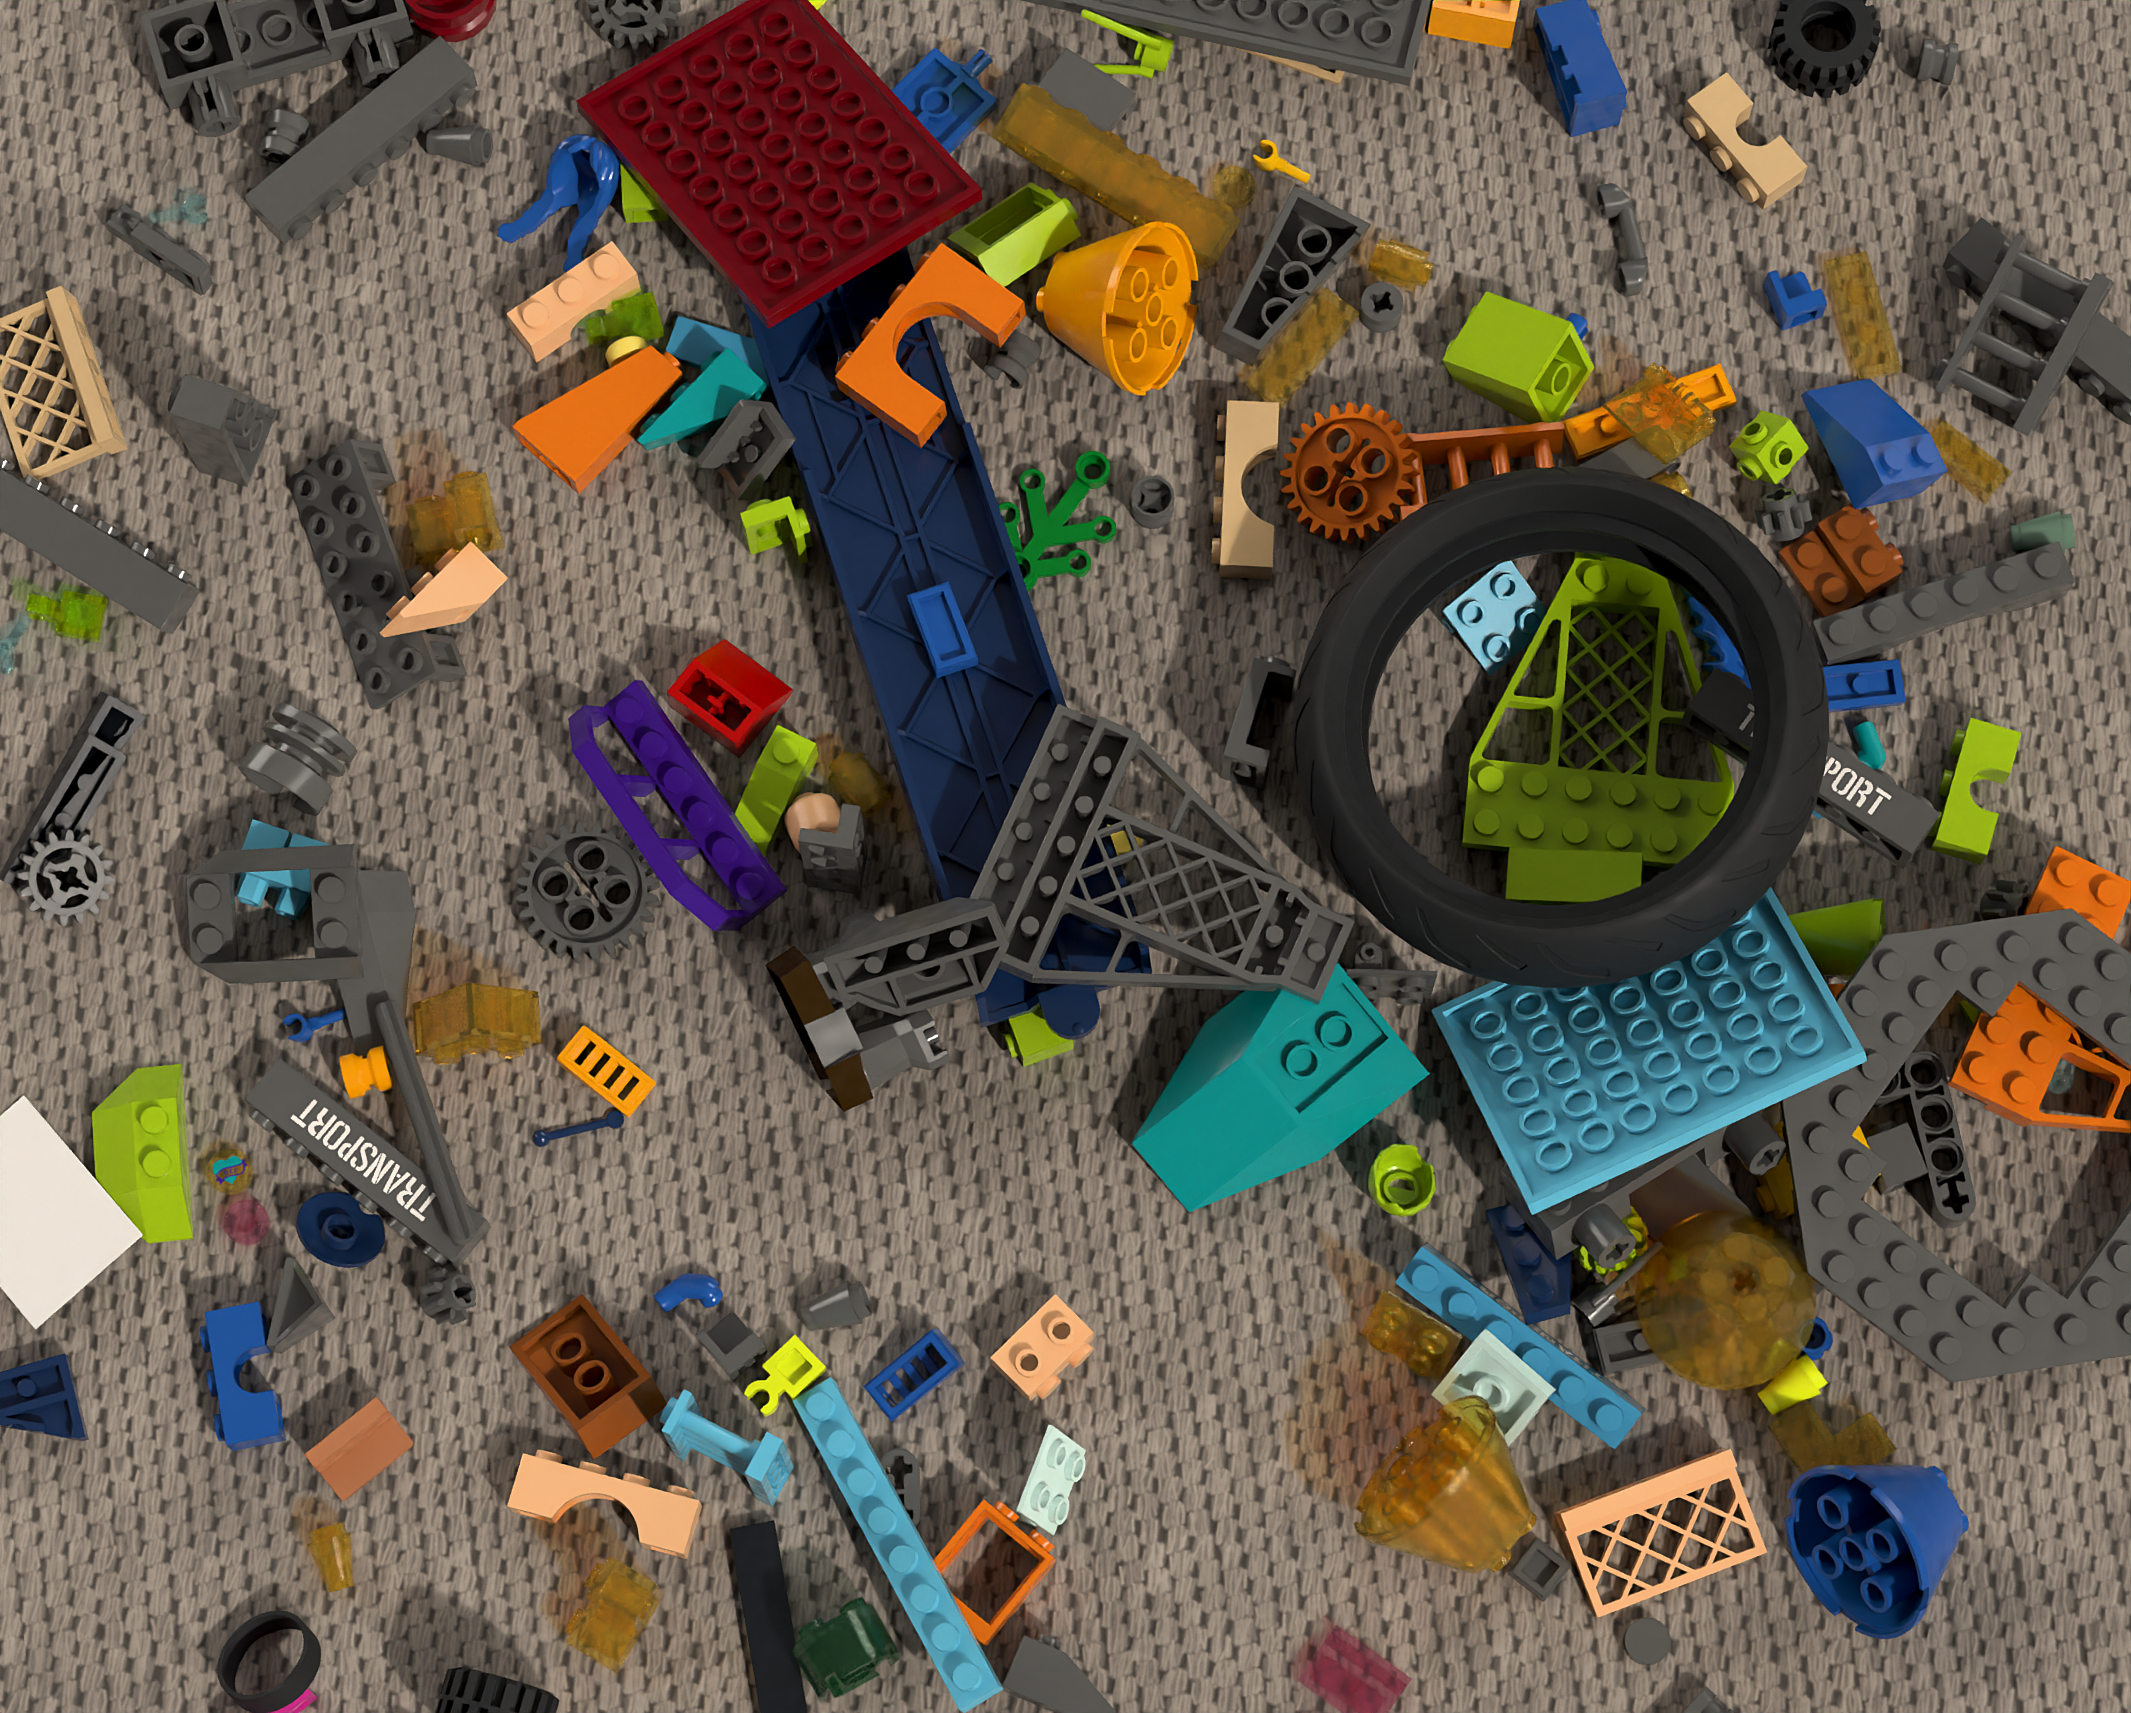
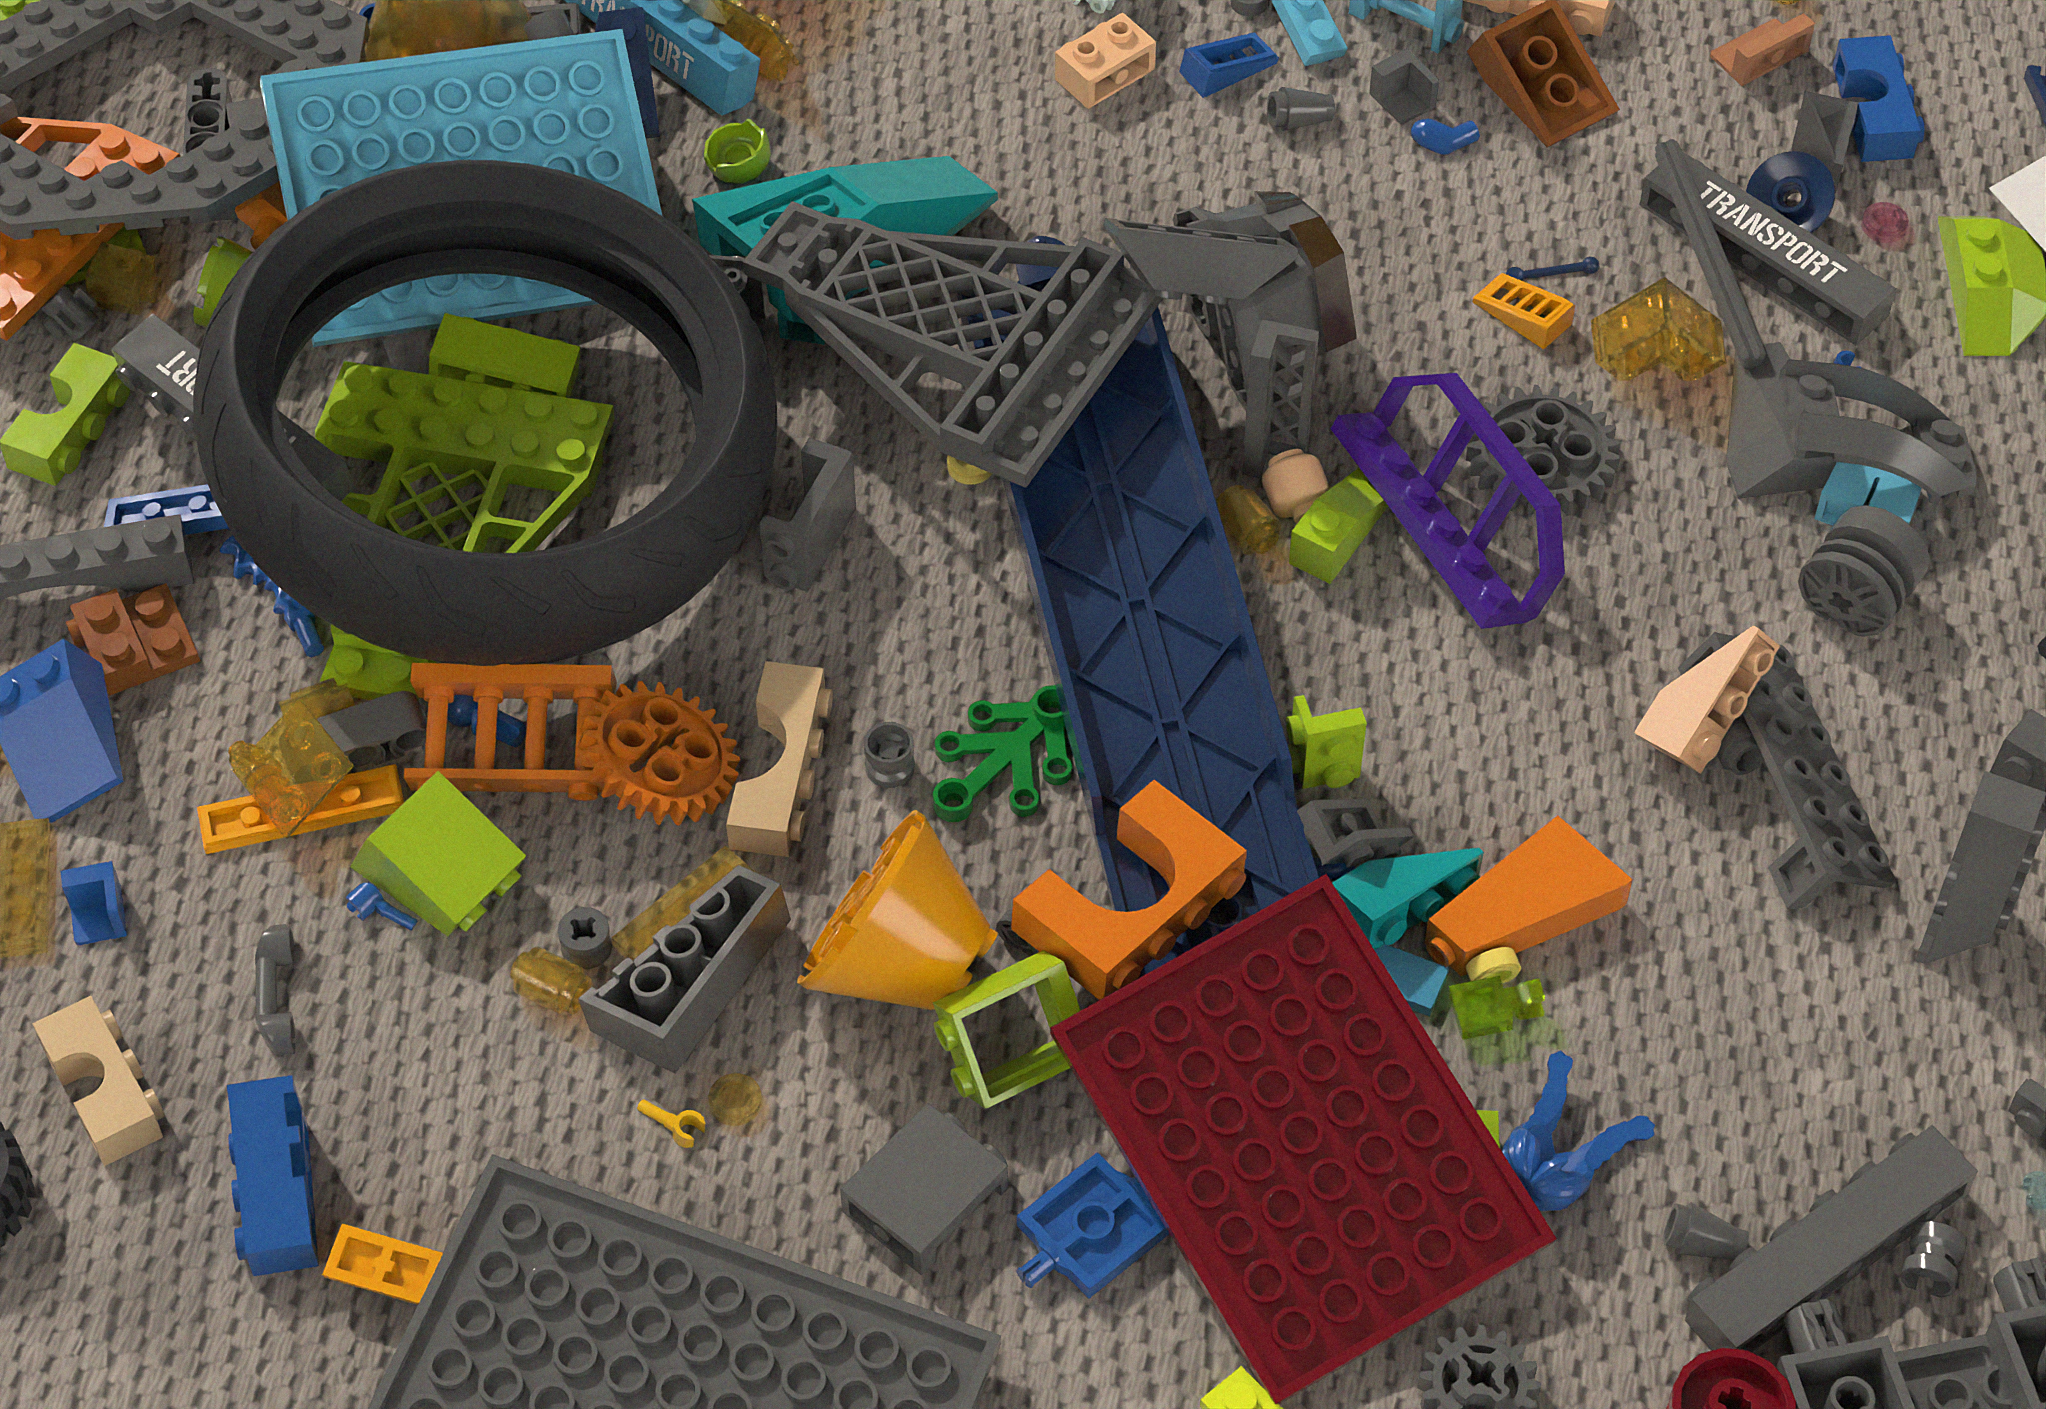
camera: 175 degrees left, 20 degrees down
(230, 1172) = (1905, 261): clear yellow tile -> none
(362, 1072) = (1775, 318): light orange wheel -> none
(447, 1296) = (1685, 130): dark grey gear -> none
(455, 520) = (1693, 797): clear yellow brick -> none
(550, 315) = (1587, 1005): light nougat arch -> none
(728, 696) = (1385, 603): red slope -> none
(789, 1371) = (1350, 68): neon yellow plate -> none
(942, 629) = (1143, 614): blue tile -> none
(1111, 173) = (884, 1079): clear yellow brick -> none
(1151, 49) = (825, 1259): lime plant -> none
(1768, 447) = (178, 740): lime brick -> none
(1783, 514) = (193, 684): dark grey gear -> none
(1870, 746) = (166, 460): teal arm -> none

